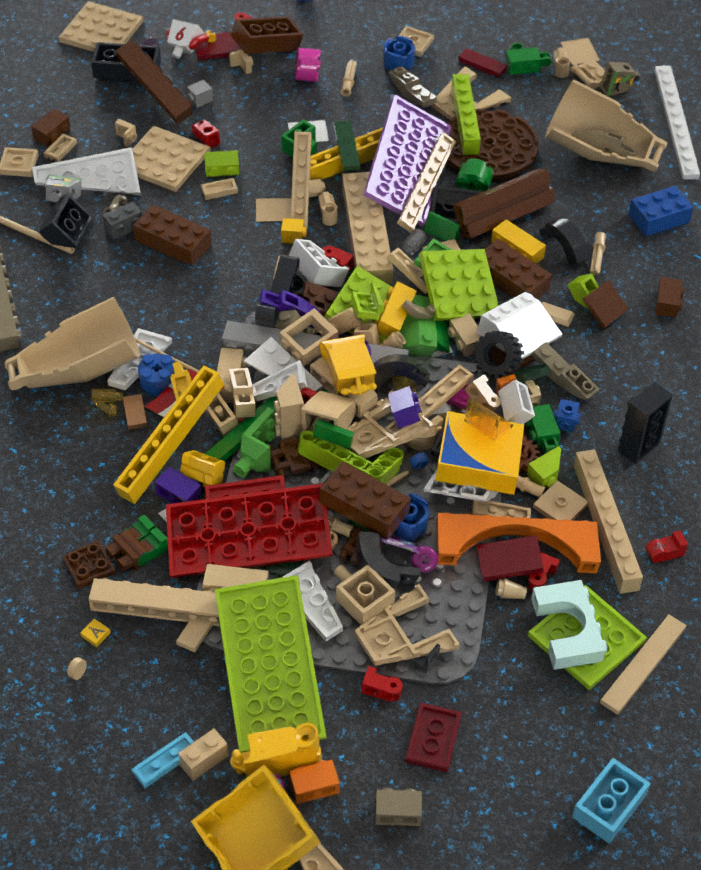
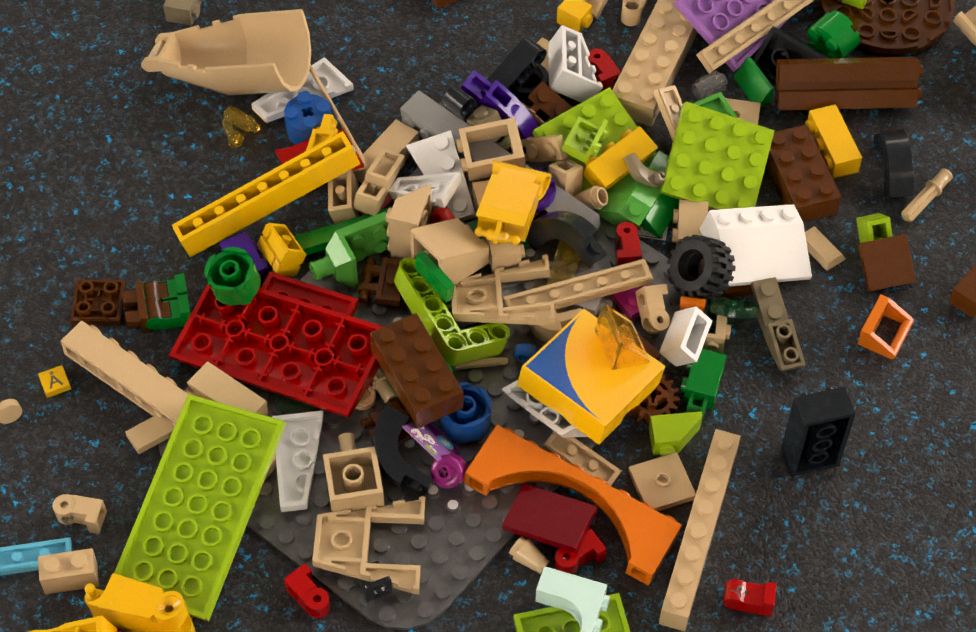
camera: 30 degrees right, 5 degrees up
(134, 412) = (259, 152): medium nougat tile -> none
(180, 710) = (80, 510): none -> tan leg
(188, 497) = (232, 276): none -> green brick
(405, 407) = (537, 281): brick -> none
(436, 363) = (628, 242): none -> red leg
(525, 484) = (635, 440): tan pin -> none
(567, 415) = (741, 379): blue brick -> none
(623, 354) = (871, 341): none -> orange tile

